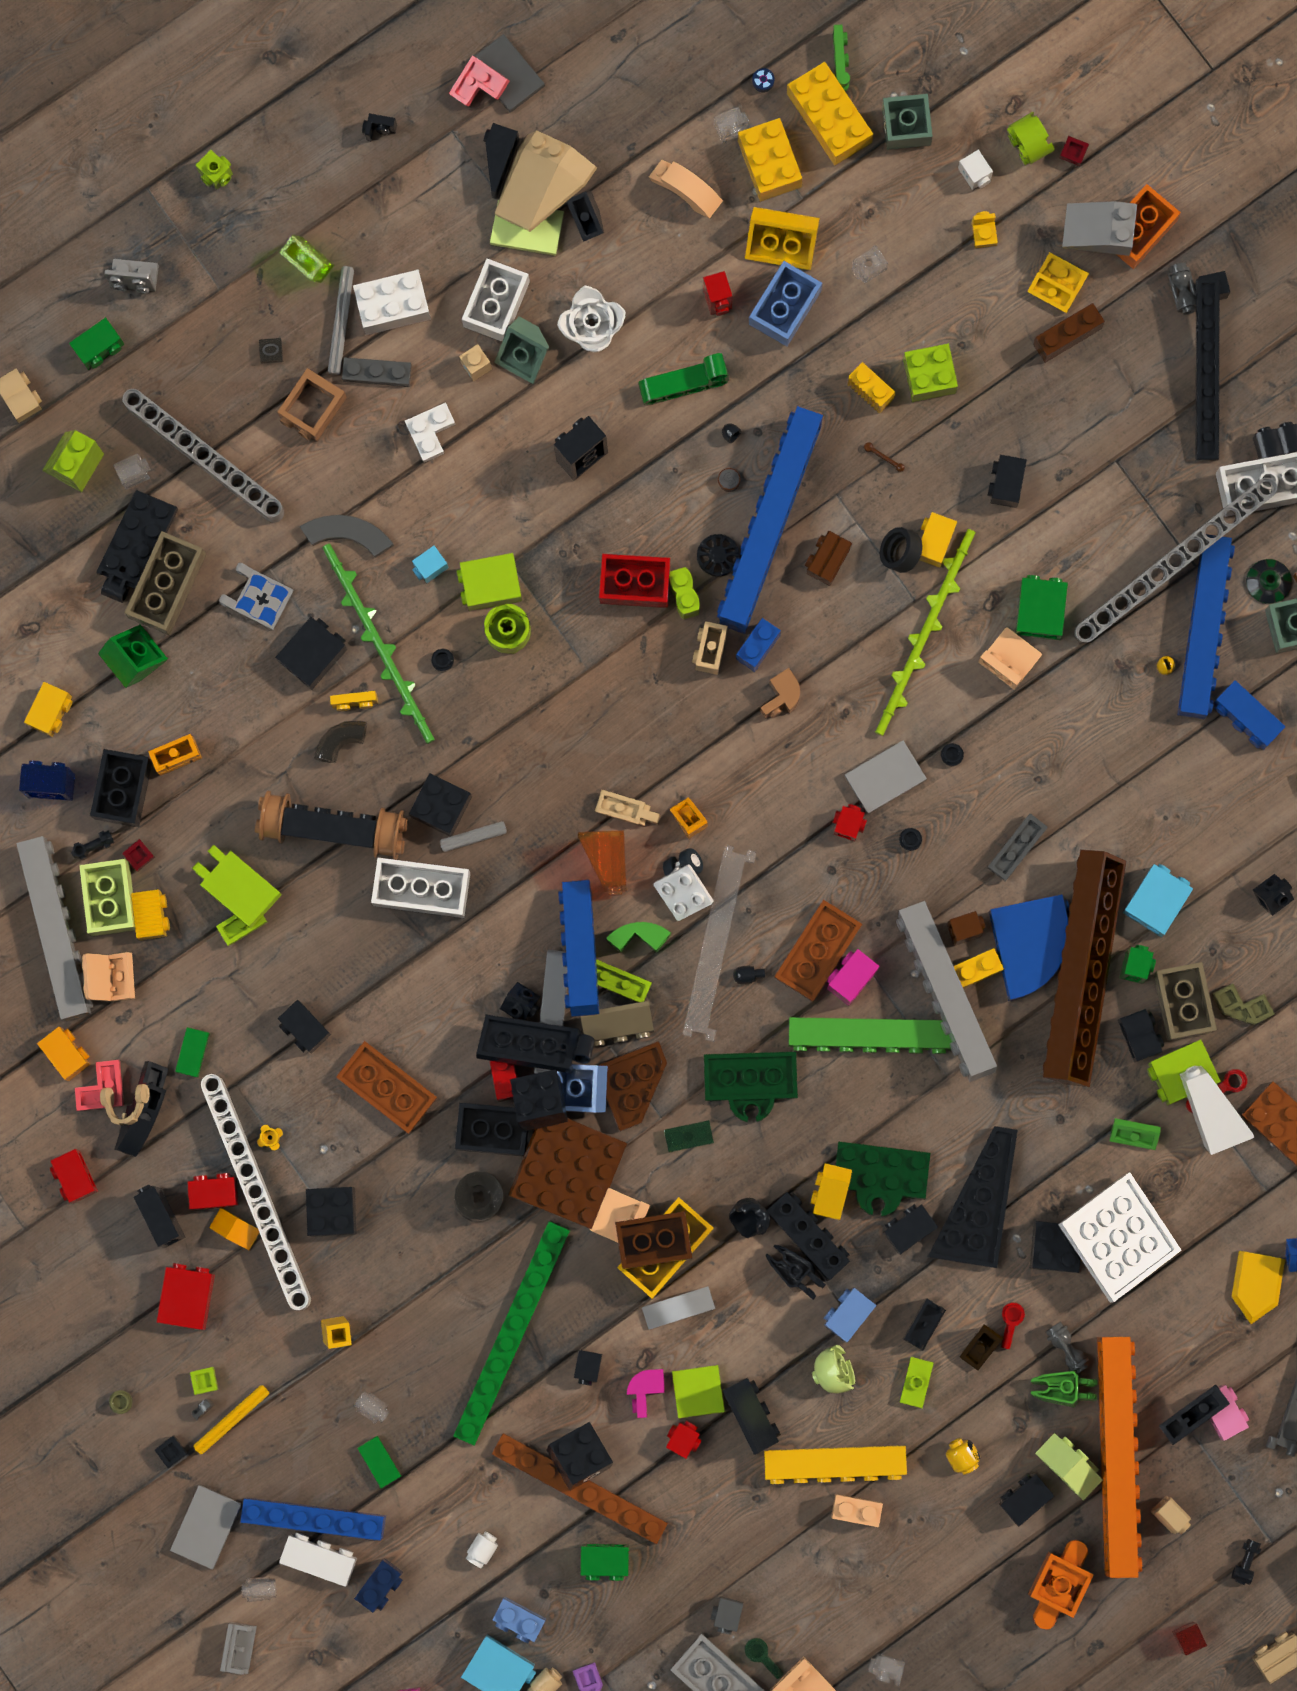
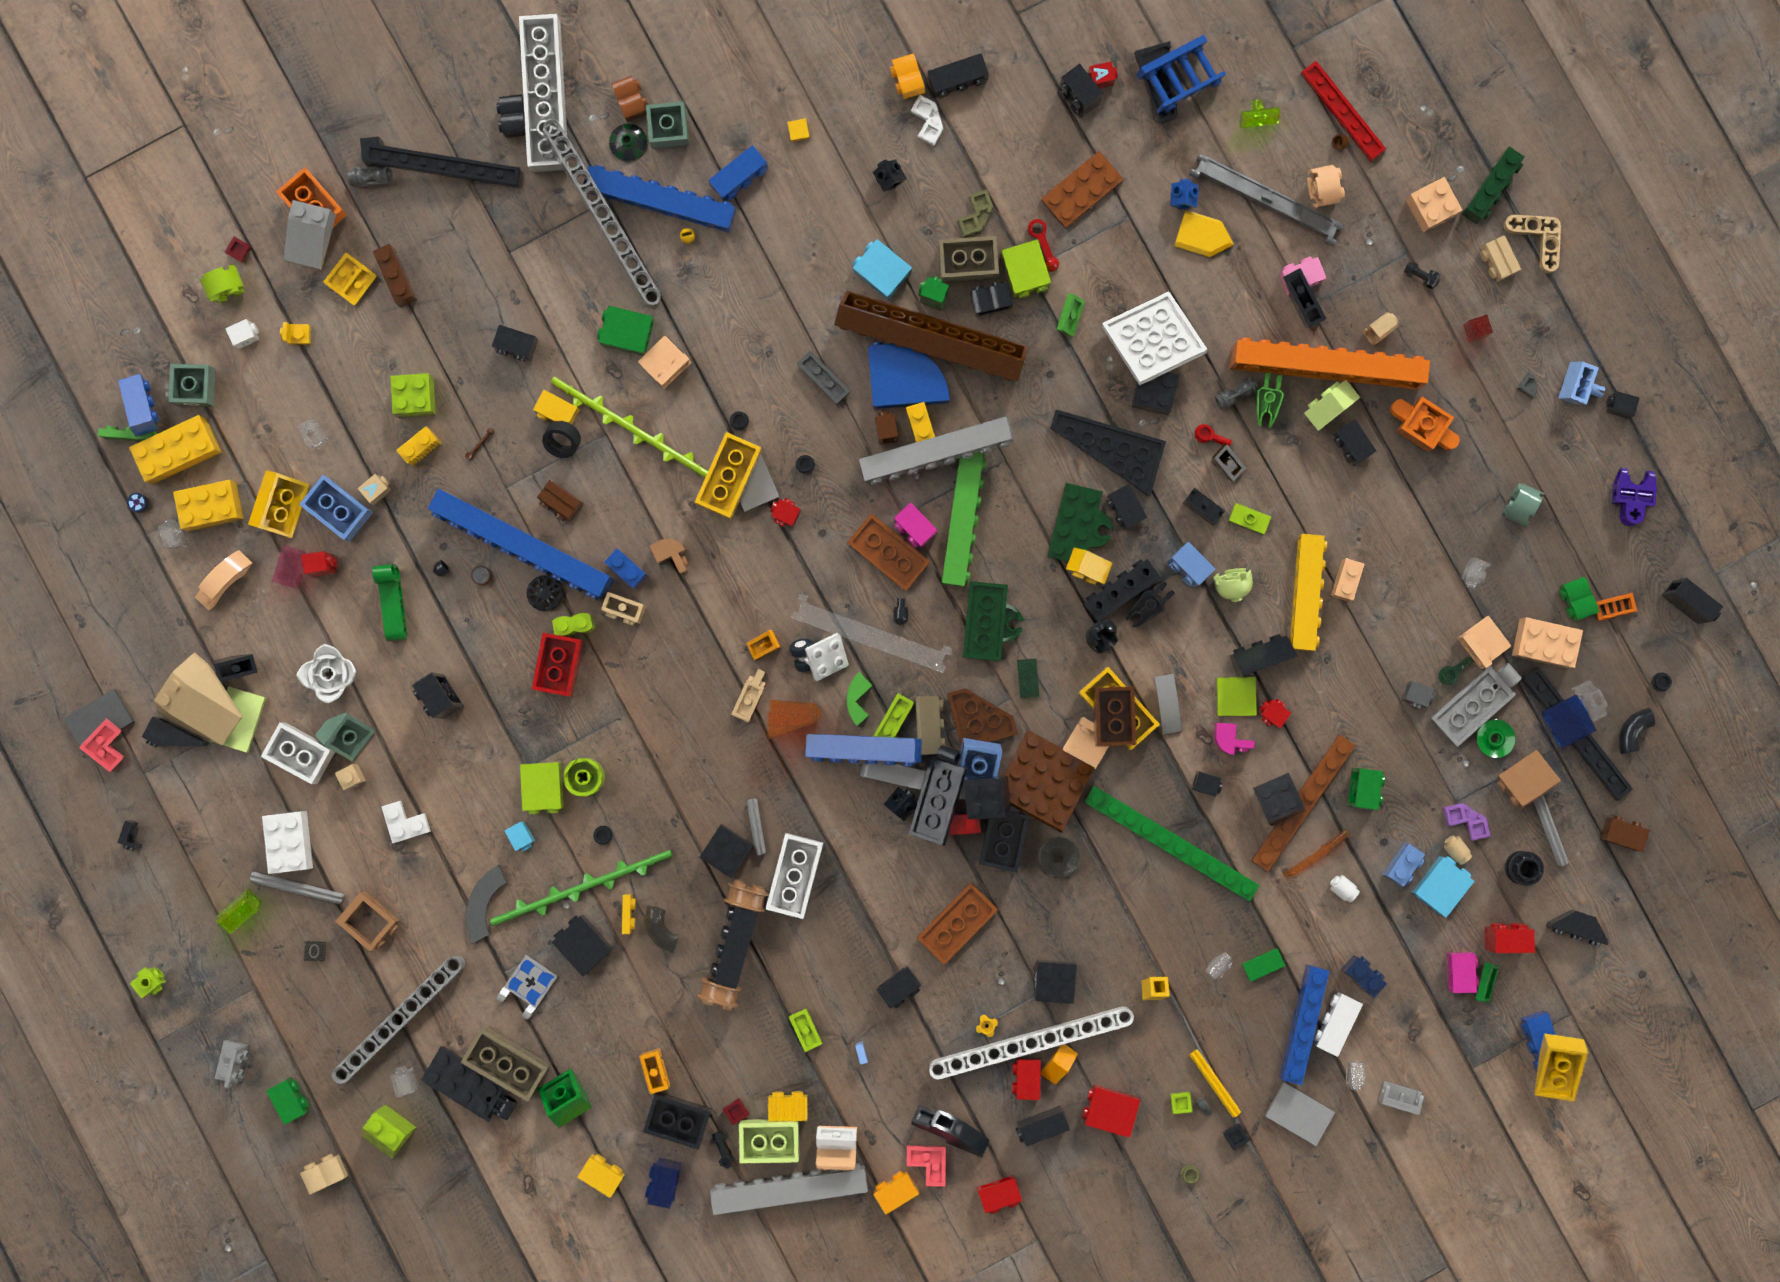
camera: 85 degrees left, 5 degrees up
(107, 1101) = (941, 1159): tan piece -> none
(119, 974) = (836, 1138): none -> white panel
(192, 1052) = (907, 1083): green tile -> none
(222, 992) = (861, 1053): none -> light blue tile
(237, 887) = (774, 1029): lime tile -> none
(376, 372) = (346, 862): dark grey plate -> none
(526, 1520) = (1324, 849): none -> clear orange sword
(709, 259) = (288, 567): none -> clear pink bracket
(814, 344) = (375, 488): none -> tan brick
(875, 65) = (138, 405): none -> brick
(883, 749) = (728, 475): none -> yellow brick
(963, 1456) = (1313, 488): yellow head -> none
(1214, 1115) = (1061, 249): white slope -> none

